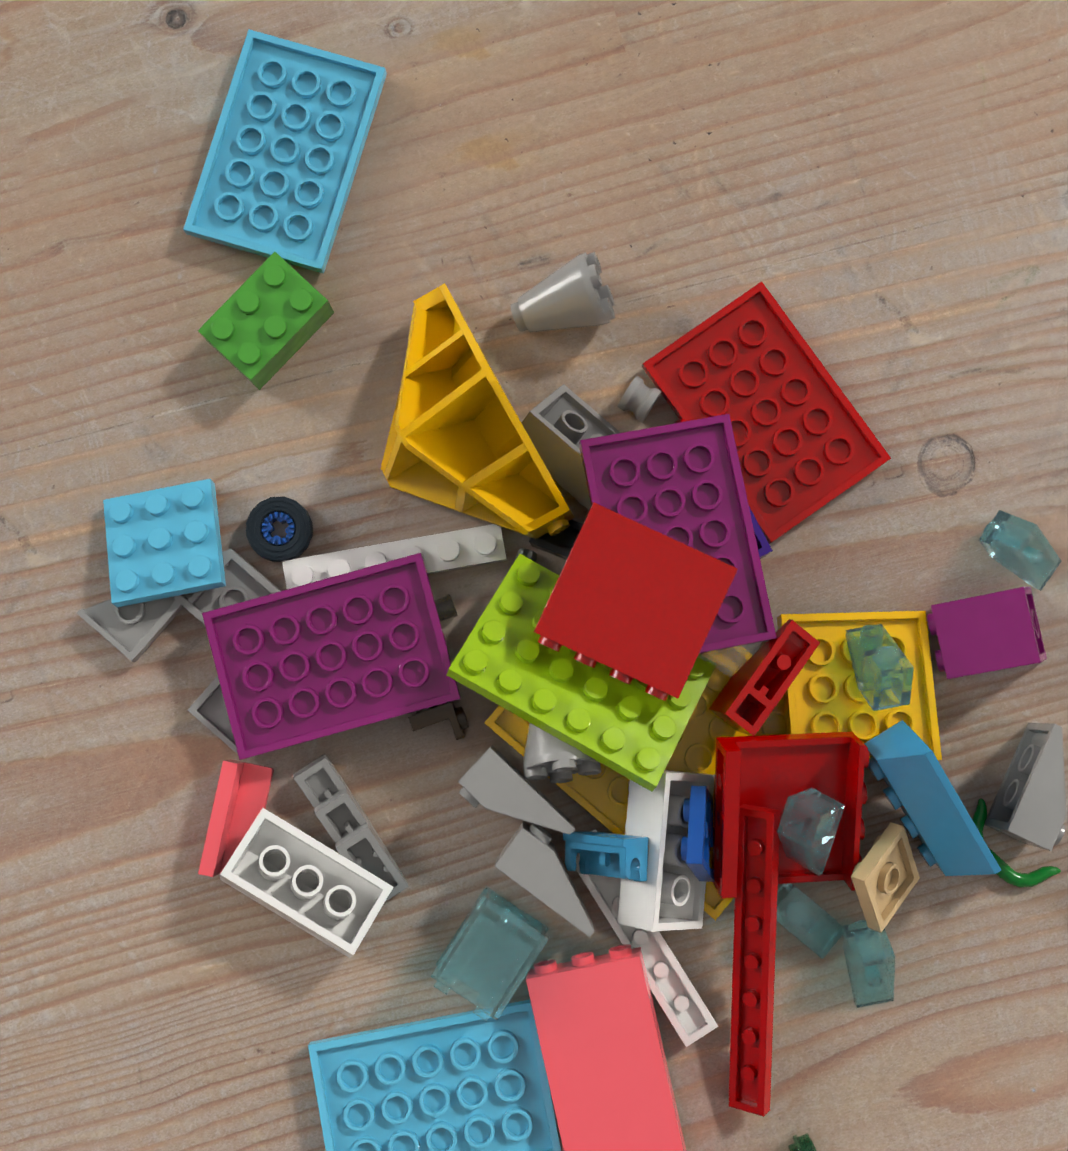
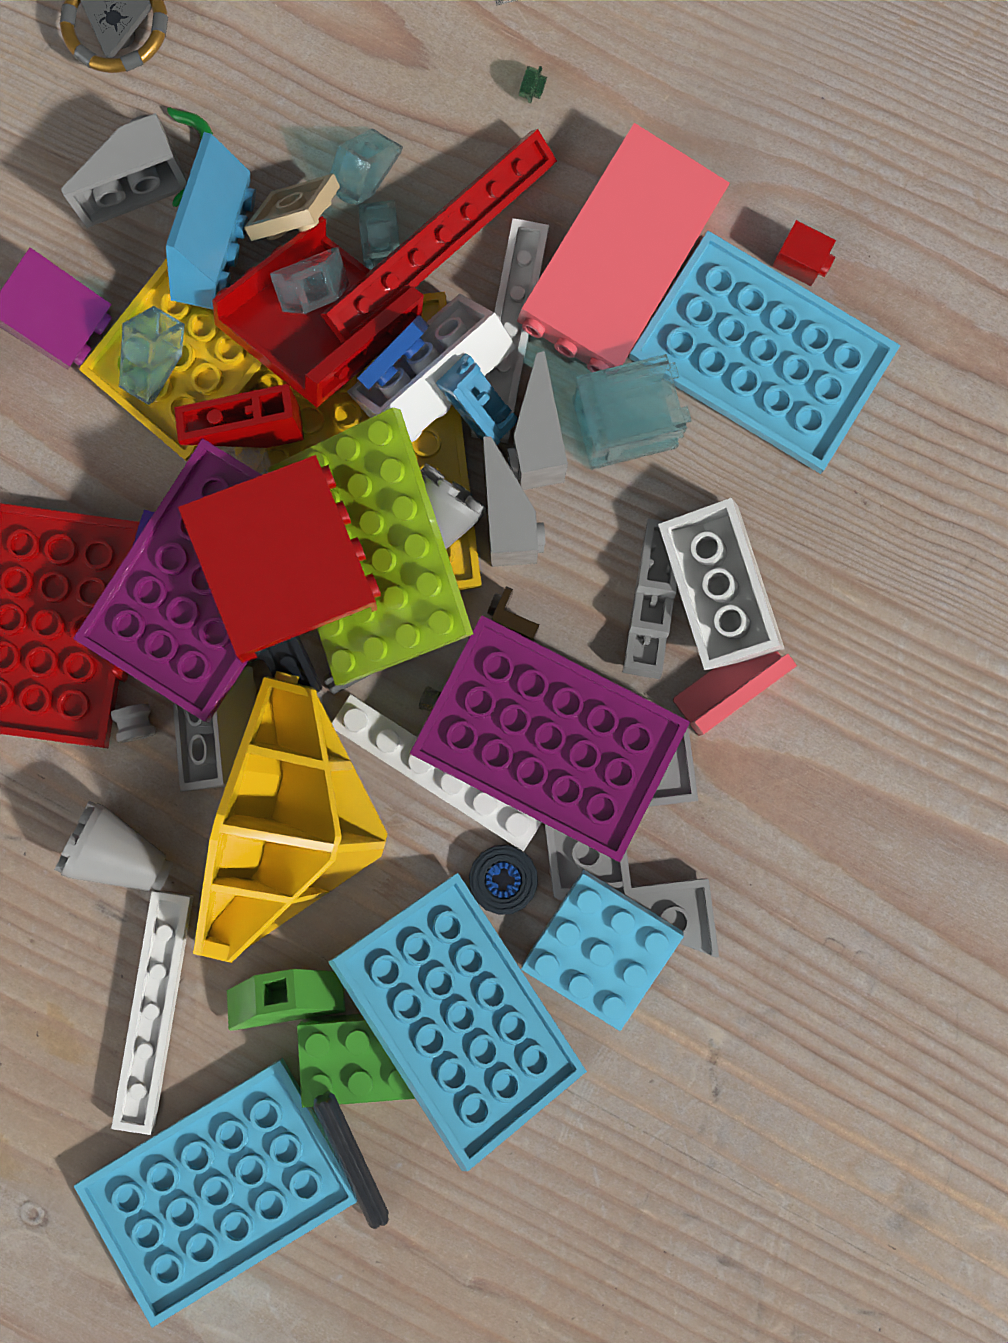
camera: 140 degrees left, 0 degrees up
(211, 248) = (351, 1160): none -> black axle
(220, 404) = (458, 1020): none -> medium azure plate
(356, 312) = (284, 998): none -> bright green slope
(440, 223) = (152, 1012): none -> white plate

